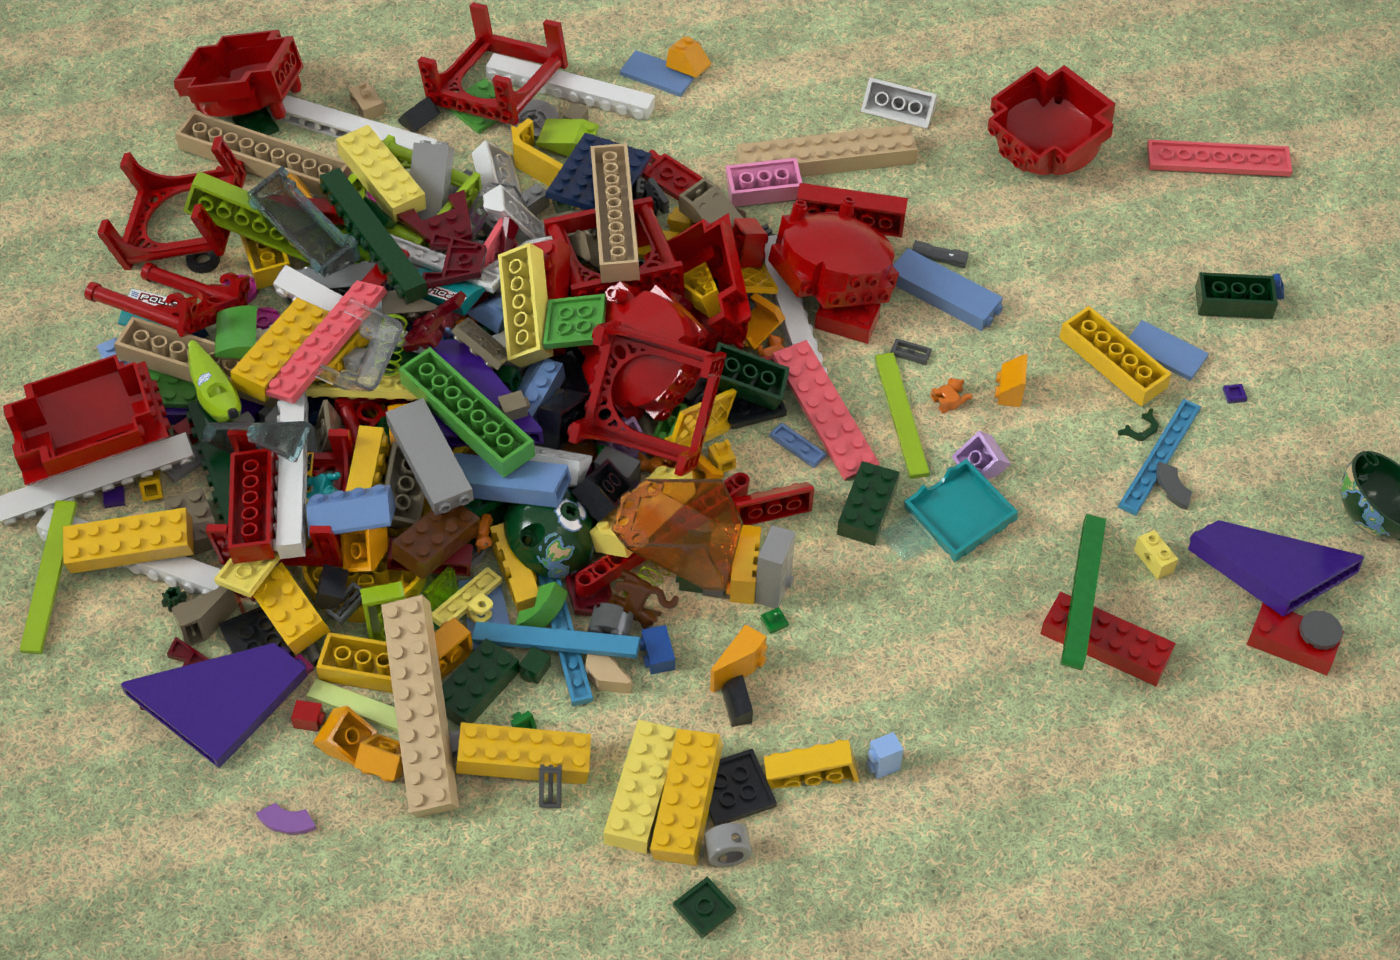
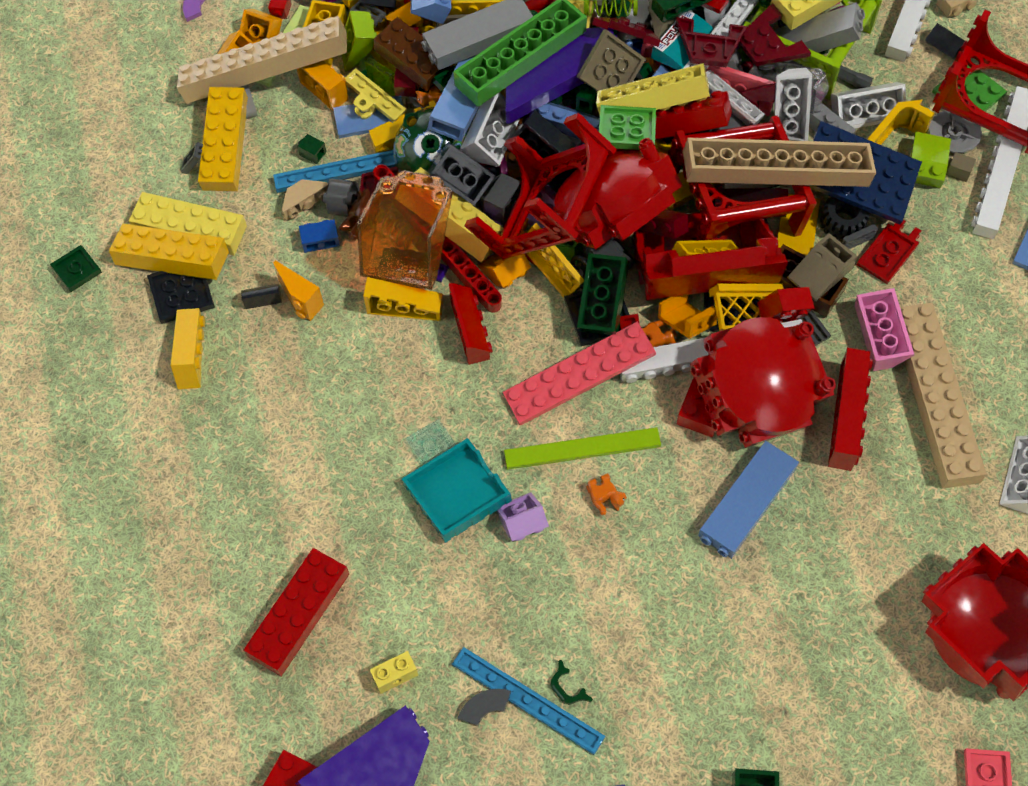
camera: 95 degrees right, 10 degrees up
(478, 682) = (296, 108): dark green brick -> none
(514, 405) = (528, 85): dark tan brick -> none
(523, 720) = (256, 142): green tile -> none
(547, 605) = (362, 150): bright green brick -> none
(557, 639) = (327, 159): dark azure tile -> none
(638, 194) = (855, 206): dark grey tile -> none
(719, 842) = (122, 280): light grey piece -> none
(722, 456) = (526, 286): yellow brick -> none
(774, 620) = (346, 327): green tile -> none
(775, 567) = (377, 311): light grey brick -> none
(797, 445) = (544, 354): medium blue tile -> none
(868, 503) = (468, 407): dark green brick -> none
(884, 755) = (187, 400): light blue brick -> none
(910, 354) = (660, 477): dark grey tile -> none
(954, 256) = (805, 486): dark grey axle -> none
(1011, 382) = (617, 553): light orange slope -> none
(1083, 592) = (338, 583): green beam -> none
(1115, 356) = (657, 663): yellow brick -> none
(1169, 350) = (676, 728): medium blue tile -> none

